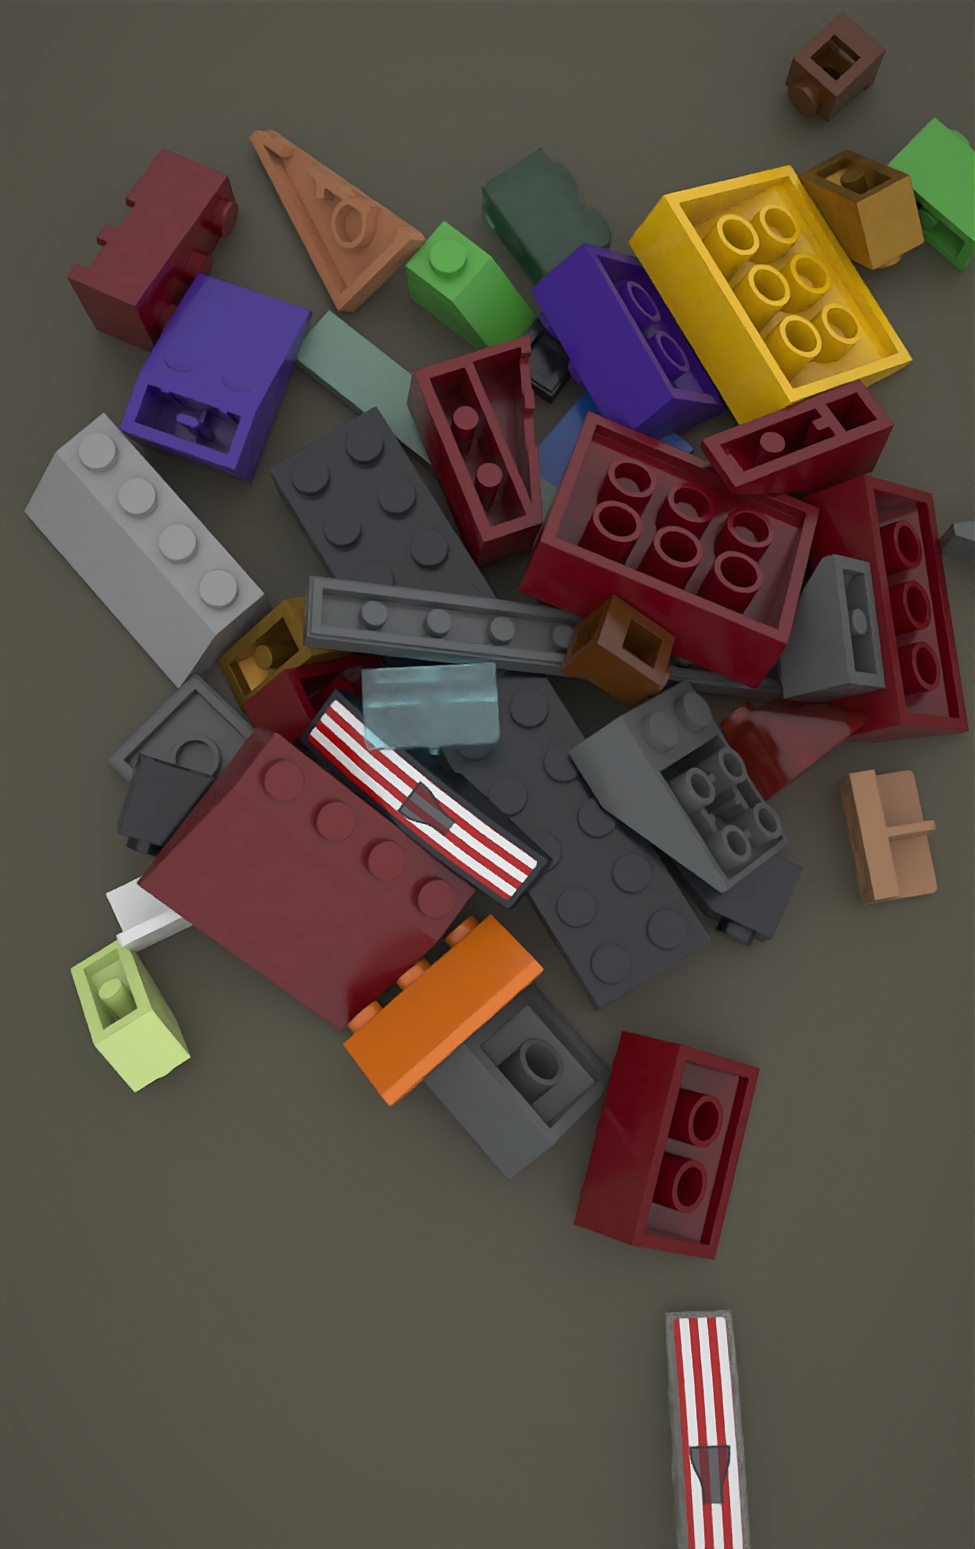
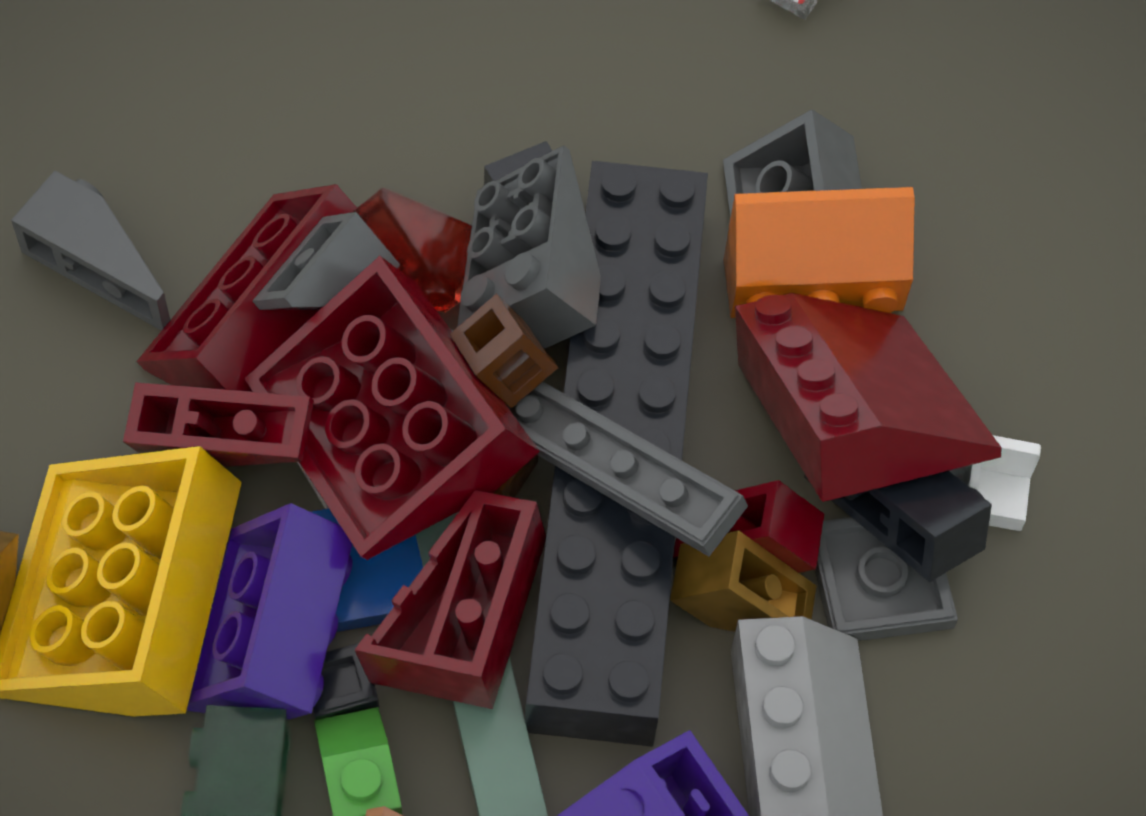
camera: 150 degrees left, 20 degrees down
(128, 1016) = (1066, 421): yellowish green slope -> none
(428, 803) = (733, 372): slope -> none
(430, 707) = (677, 407): clear light blue panel -> none
(666, 1146) = (726, 93): dark red slope -> none
(887, 835) = (403, 157): medium nougat panel -> none

